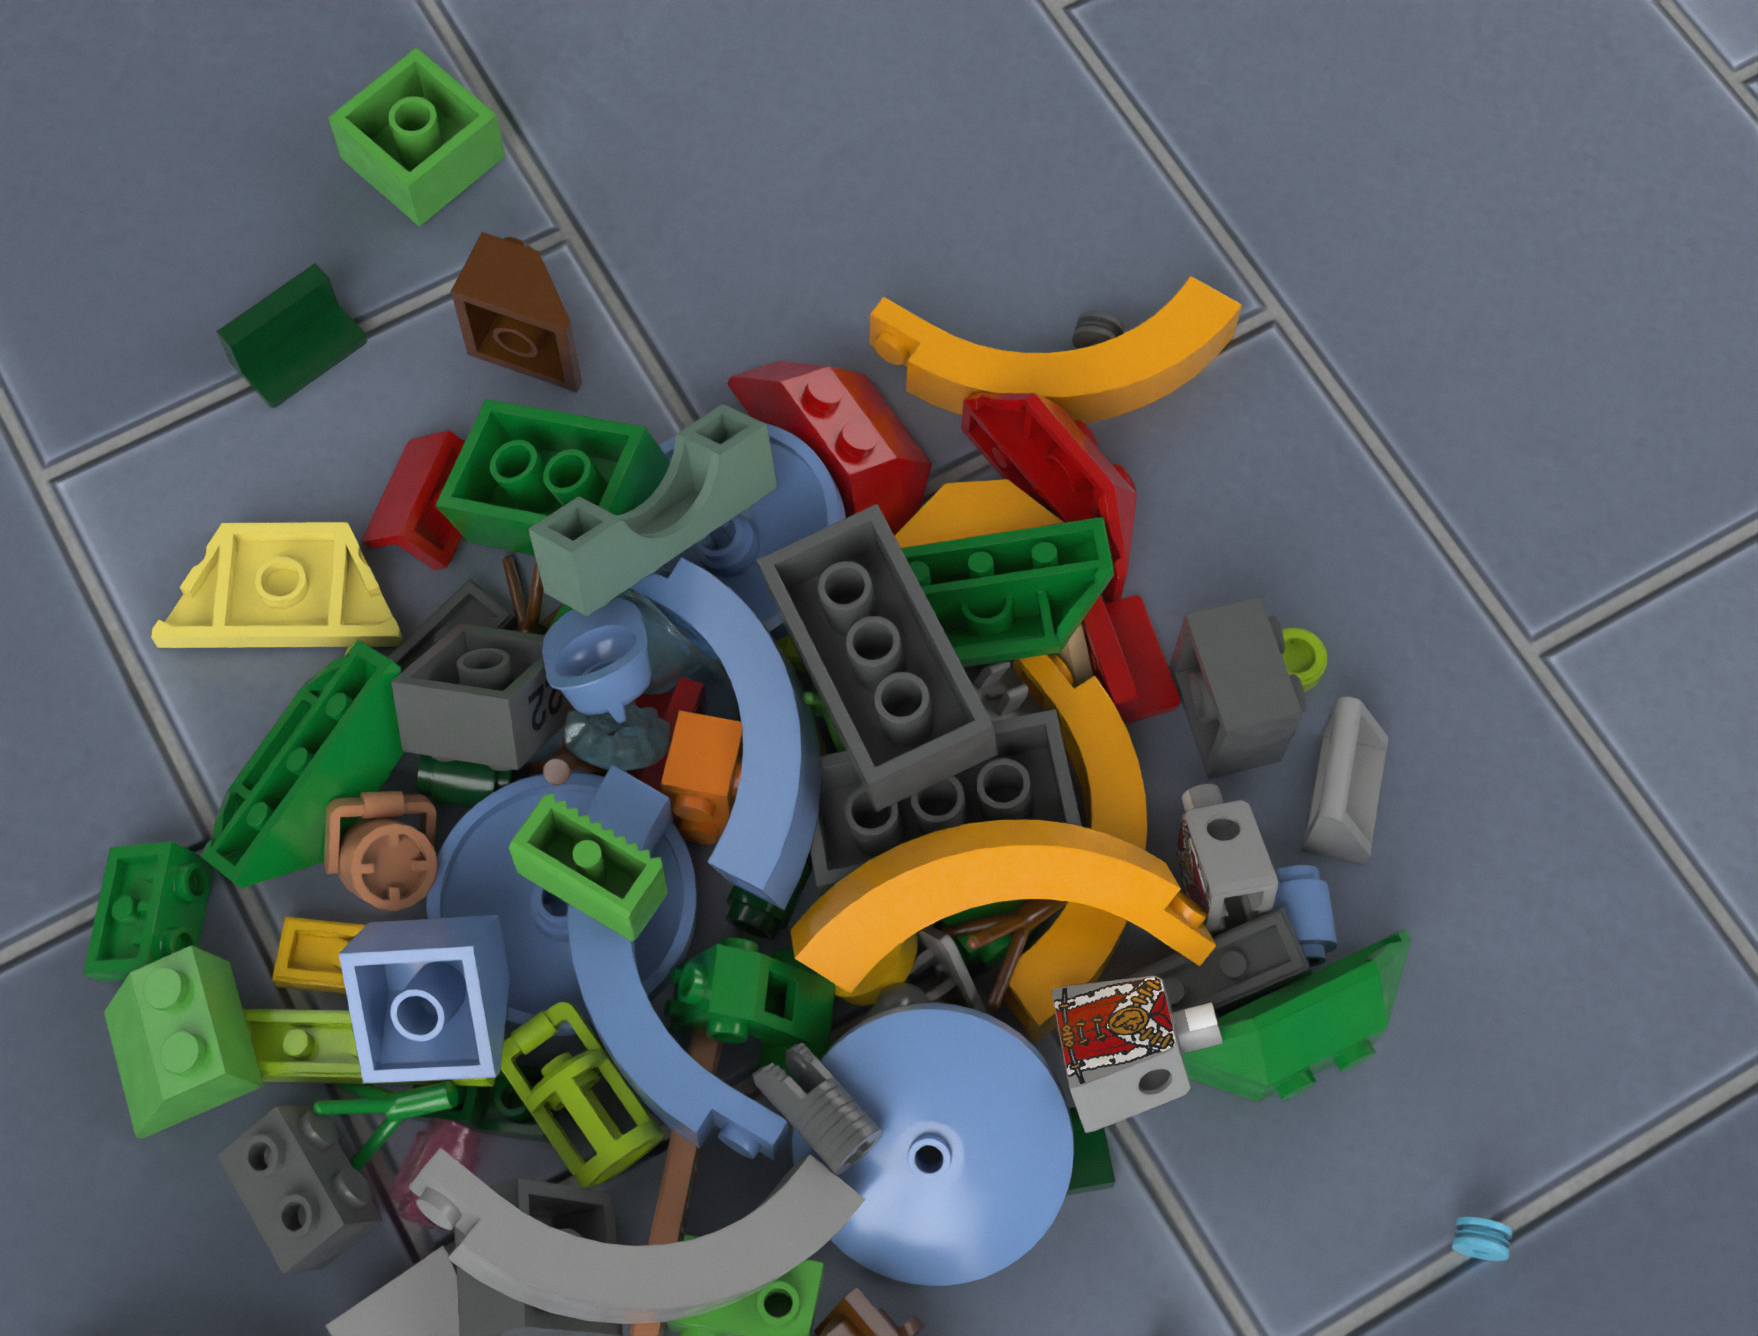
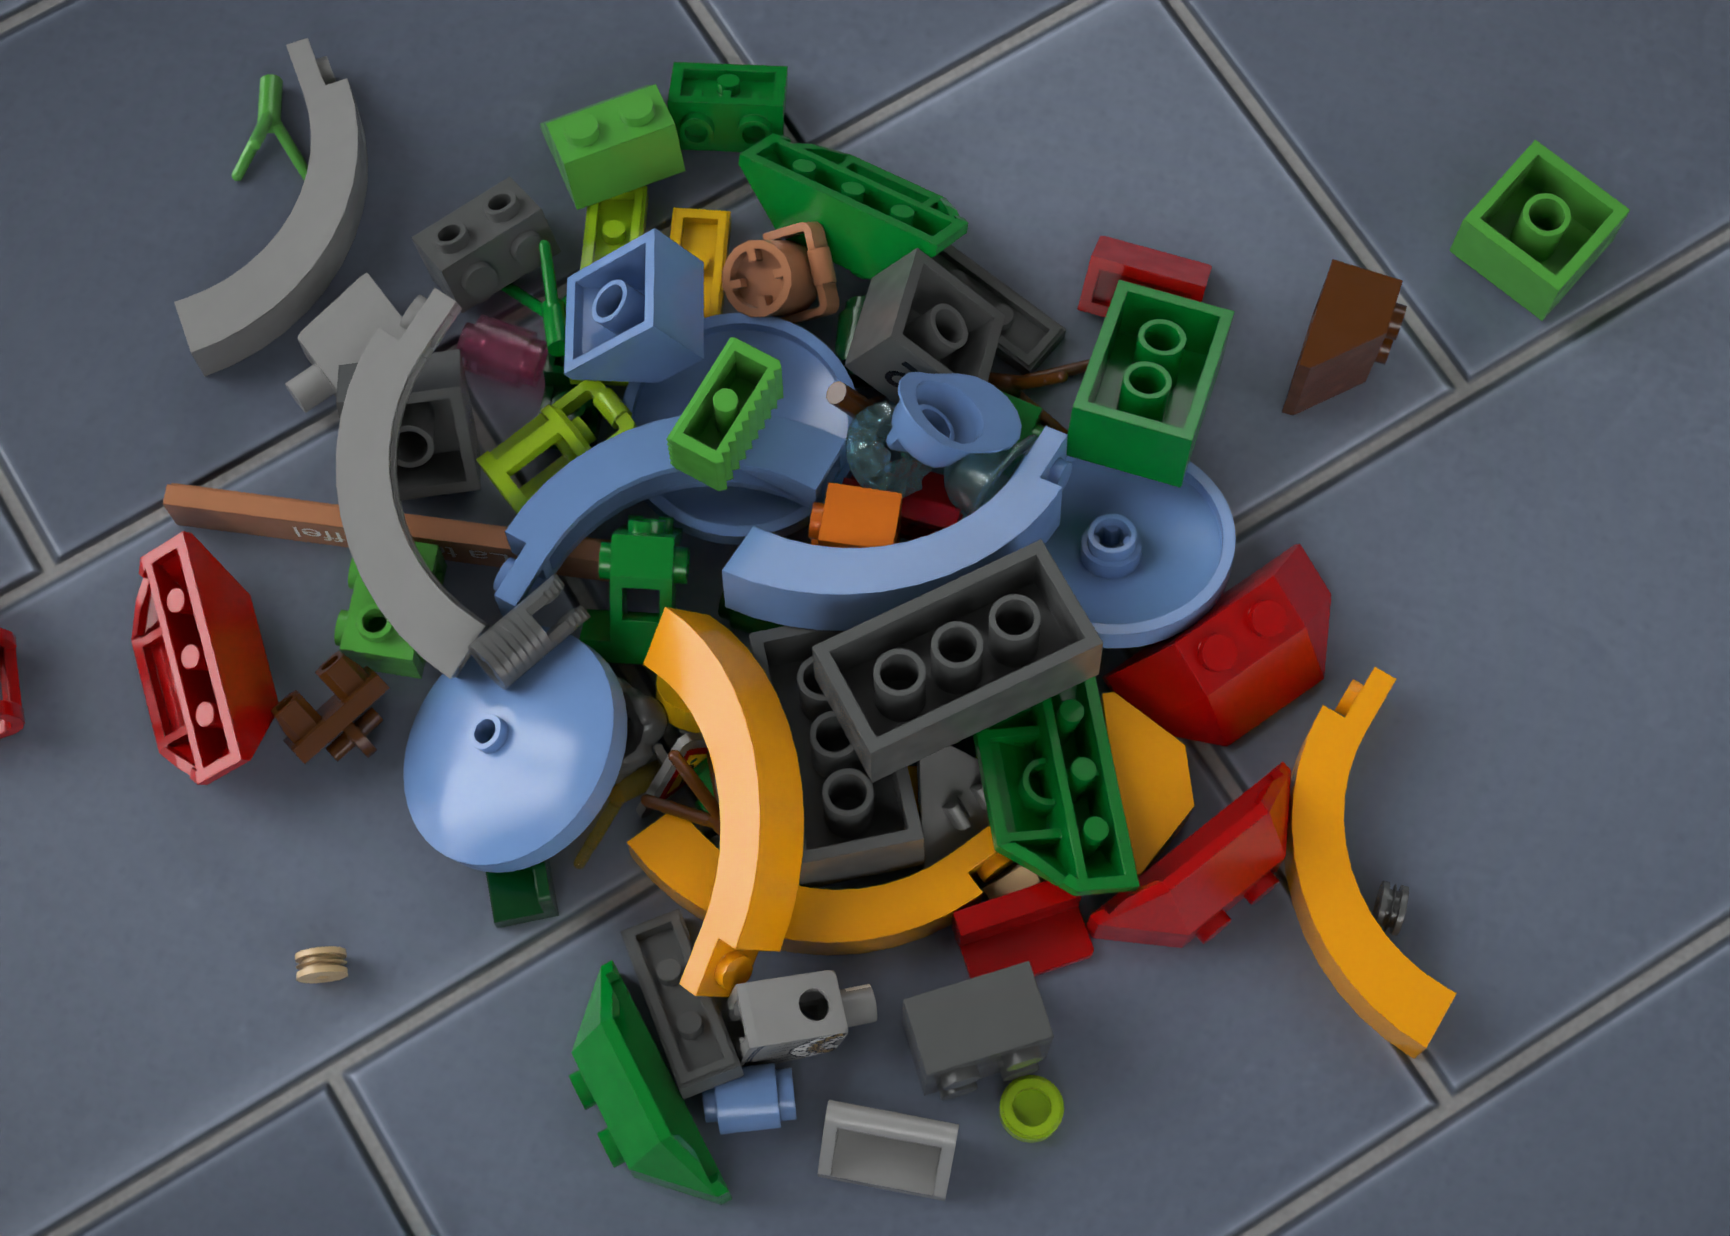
camera: 90 degrees right, 5 degrees up
(280, 590) = (1042, 173): light yellow wing -> none
(291, 337) = (1309, 151): dark green panel -> none
(714, 474) = (1145, 507): sand green arch -> none
(1127, 1046) = (592, 907): torso -> none

